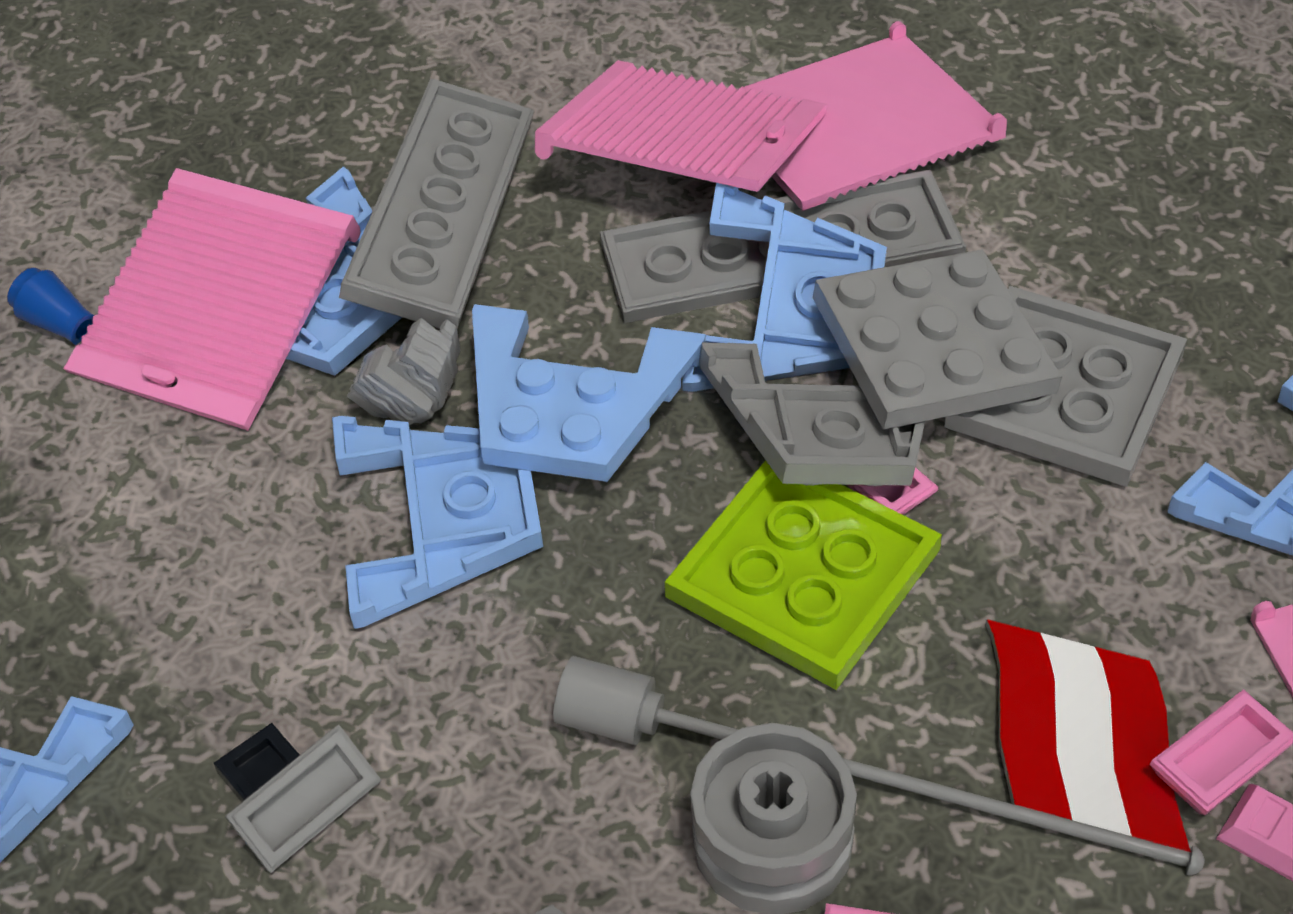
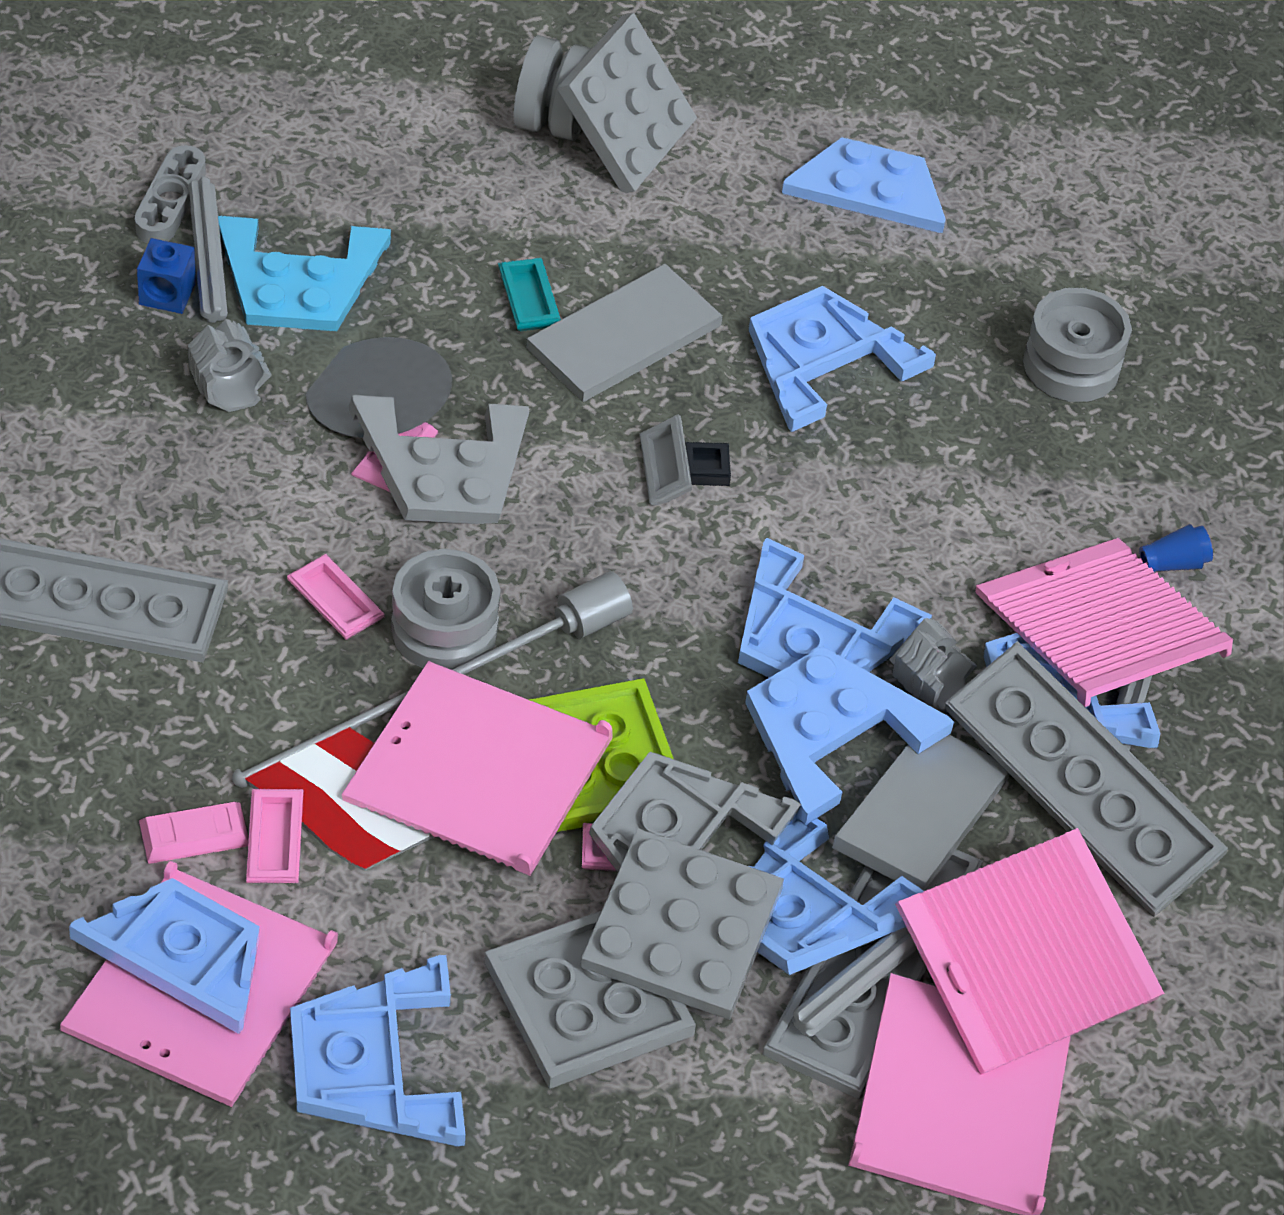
camera: 120 degrees right, 0 degrees up
(602, 284) = (921, 810): none -> light grey tile
(856, 216) = (853, 982): none -> light grey axle
(939, 635) = (478, 767): none -> bright pink door

